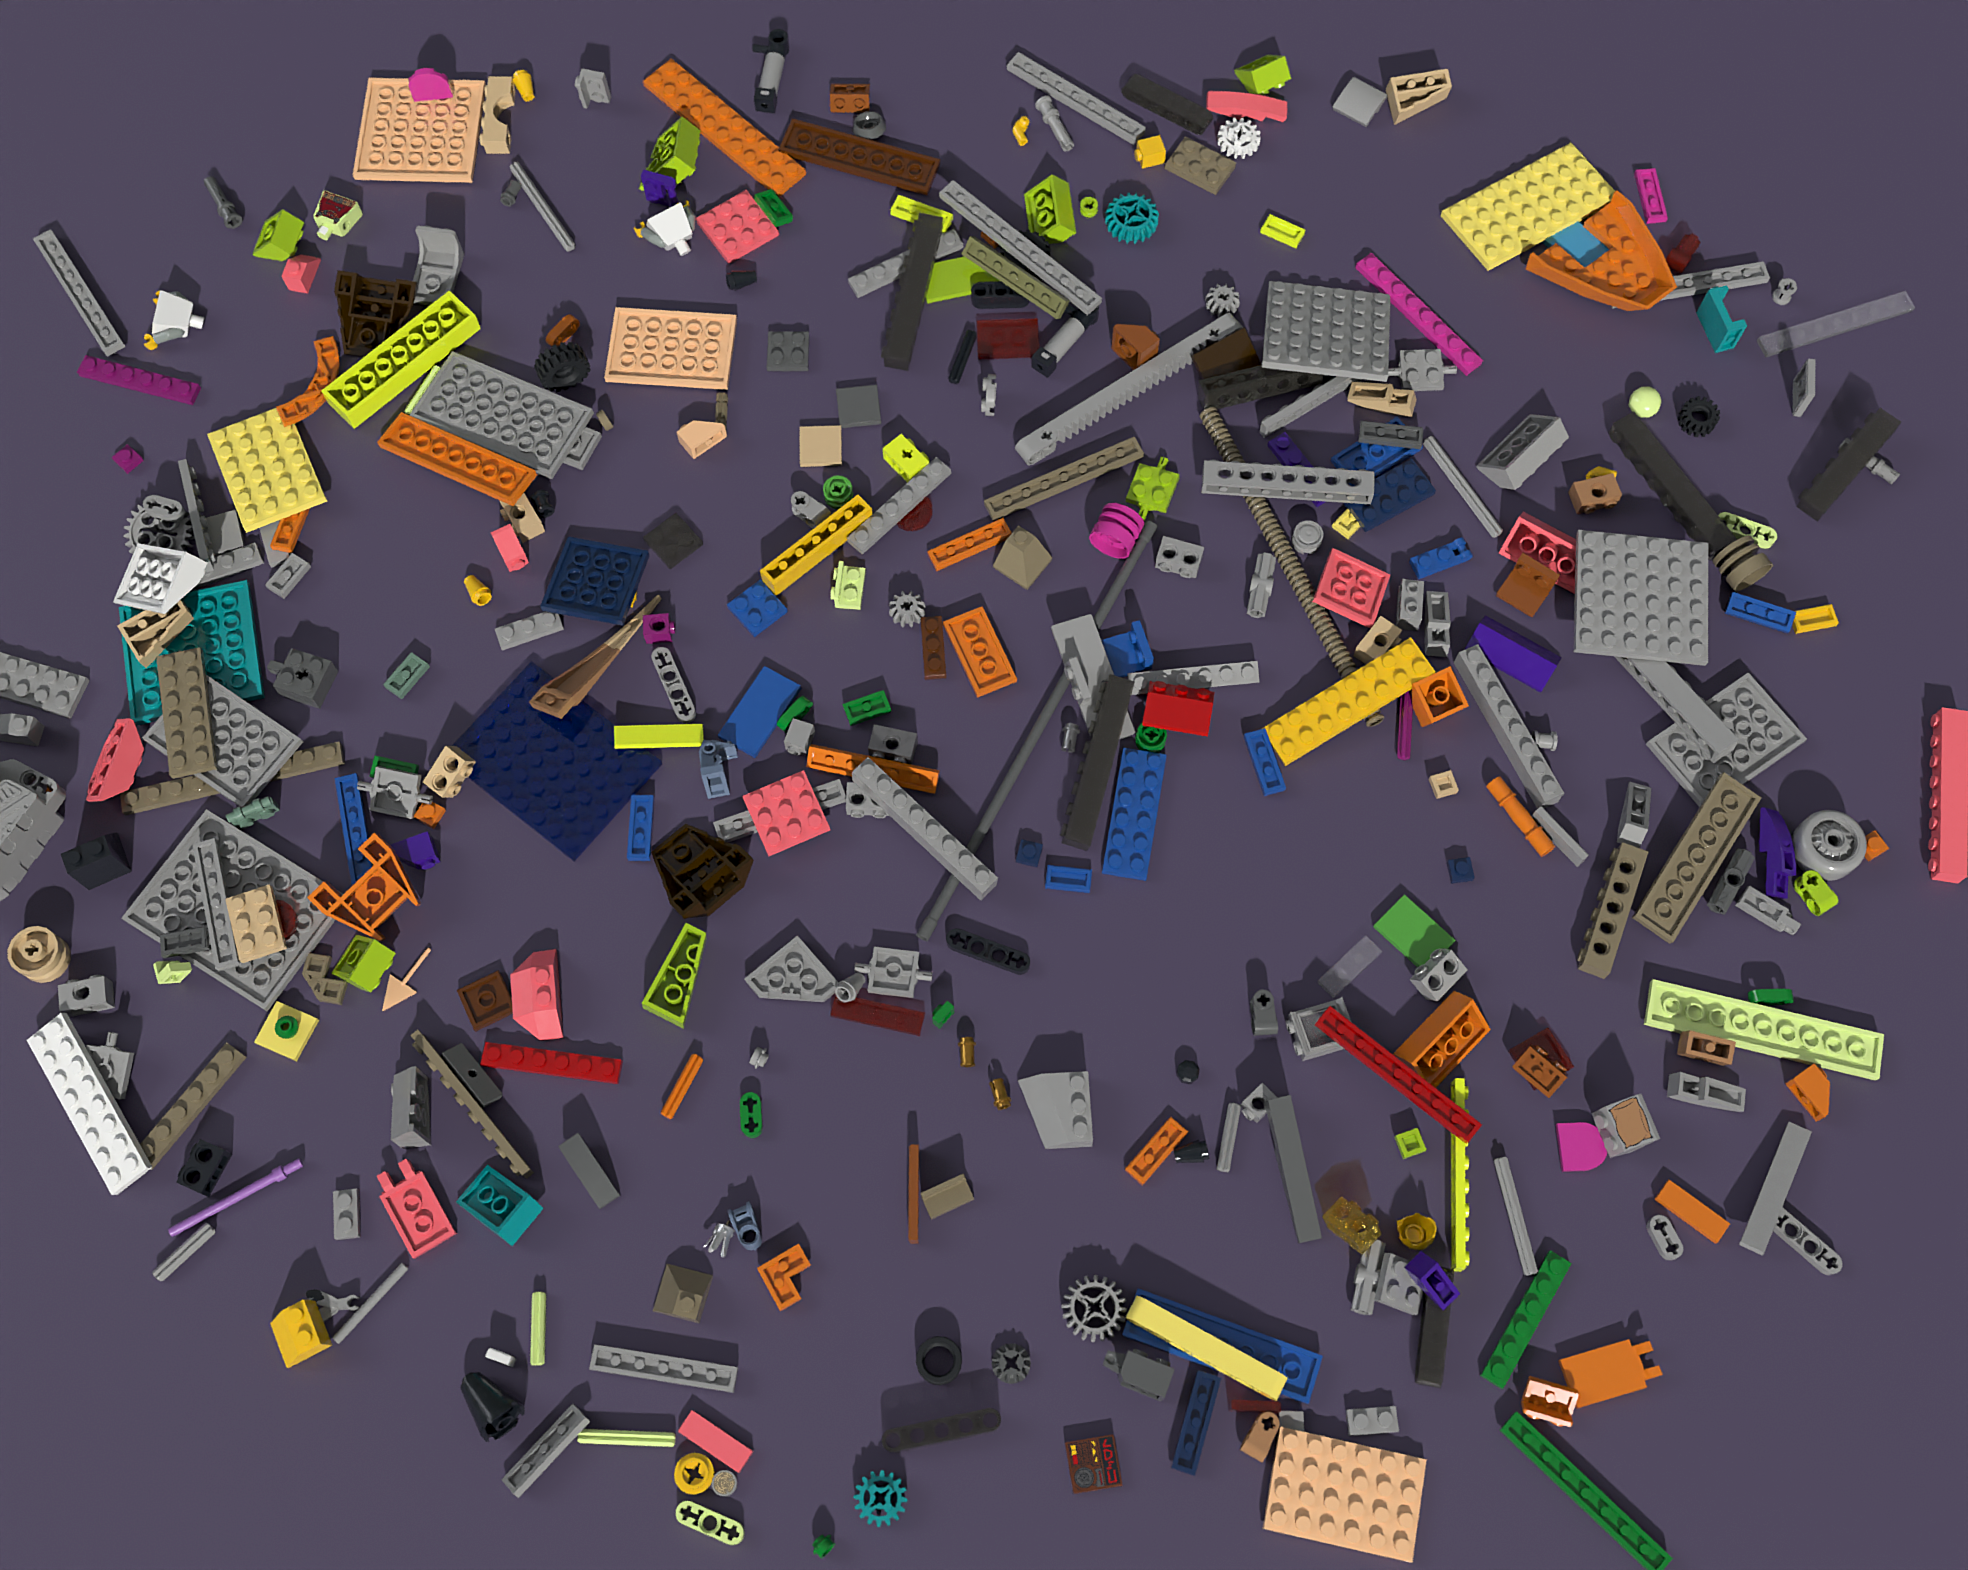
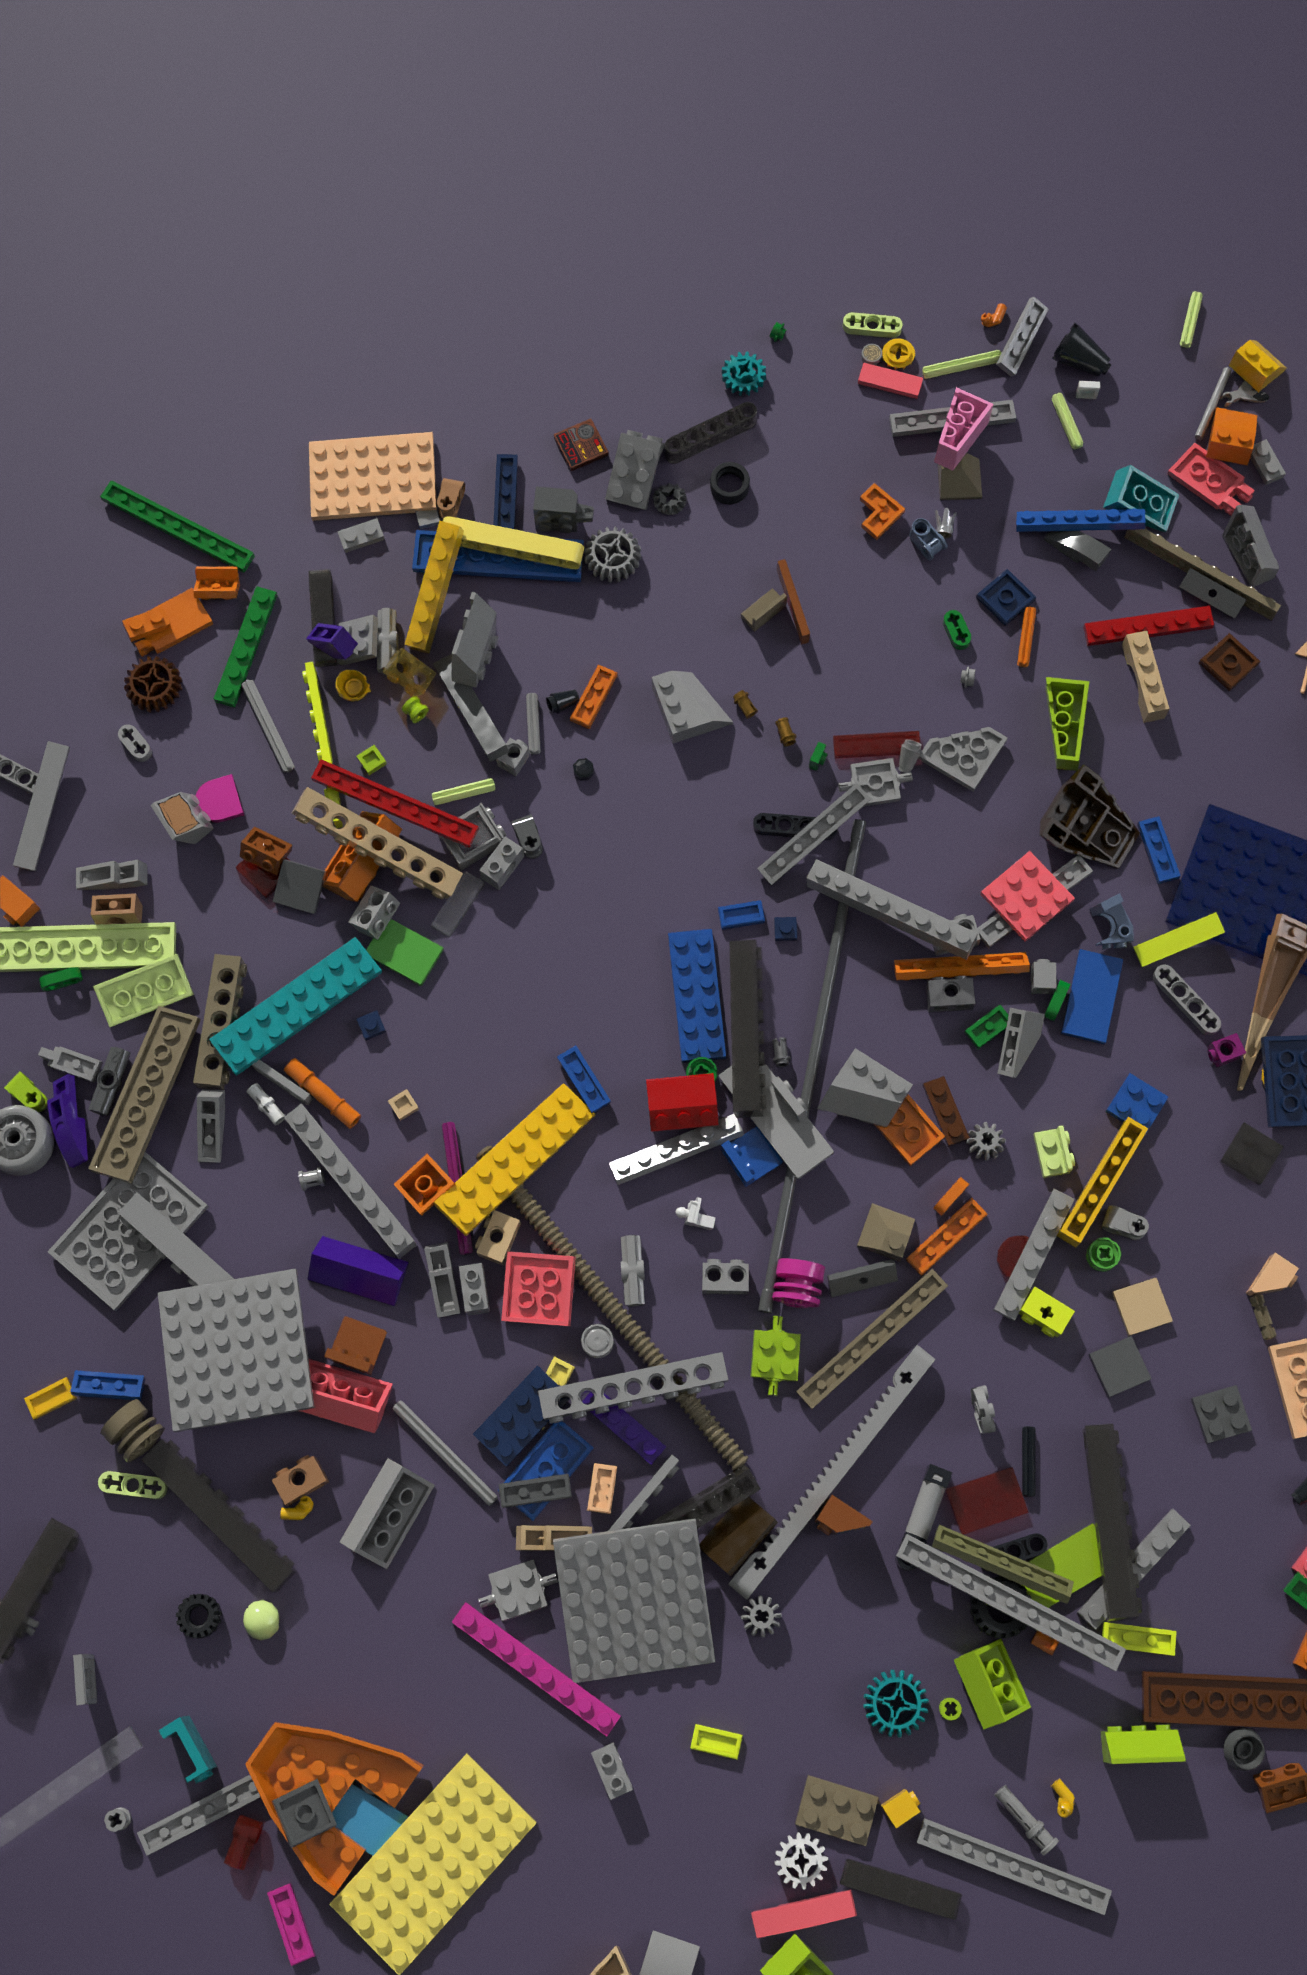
camera: 165 degrees right, 5 degrees up
(346, 1417) = (1191, 319): none -> yellowish green axle
(368, 1251) = (1232, 436): none -> orange slope
(537, 995) = (1187, 678): coral wedge -> none
(566, 1487) = (990, 320): none -> orange arm
(575, 1194) = (1080, 520): none -> blue plate
(576, 1019) = (1141, 658): none -> tan arch
(661, 1336) = (962, 427): none -> bright pink wedge
(685, 1138) = (1006, 597): none -> dark blue tile
(843, 685) = (1020, 1038): none -> light grey slope
(949, 139) = (1141, 1745): none -> lime slope
(954, 572) = (951, 1196): none -> orange beam
(973, 930) = (814, 833): none -> light grey plate
(1002, 674) = (866, 1091): none -> light grey wedge
(1039, 1410) = (634, 469): none -> light grey bracket
(1057, 528) = (862, 1278): none -> dark grey tile
(1193, 616) = (693, 1217): none -> white piece
(1254, 1406) = (470, 513): clear red tile -> none
(1275, 1228) = (474, 643): none -> light grey wedge
(1297, 990) = (502, 863): none -> light grey brick
(1304, 1313) = (434, 587): none -> yellow brick
(1319, 1082) = (463, 791): none -> yellowish green axle
(1331, 425) = (602, 1488): none -> light nougat plate
(1352, 1186) = (415, 709): none -> lime wheel
(1373, 227) = (612, 1770): none -> light grey brick
(1440, 558) = (452, 1358): blue plate -> none
(1489, 1076) = (331, 810): none -> tan brick
(1510, 1024) = (299, 886): none -> dark grey tile
(1534, 899) = (295, 1006): none -> teal plate
(1577, 821) = (266, 1104): none -> white pin
(1629, 1315) = (139, 679): none -> reddish brown gear
(1632, 246) = (304, 1813): none -> dark grey tile
(1637, 1369) = (146, 624): none -> orange plate
(1686, 961) = (143, 990): none -> yellowish green tile
(1692, 1211) = (113, 771): orange tile -> none

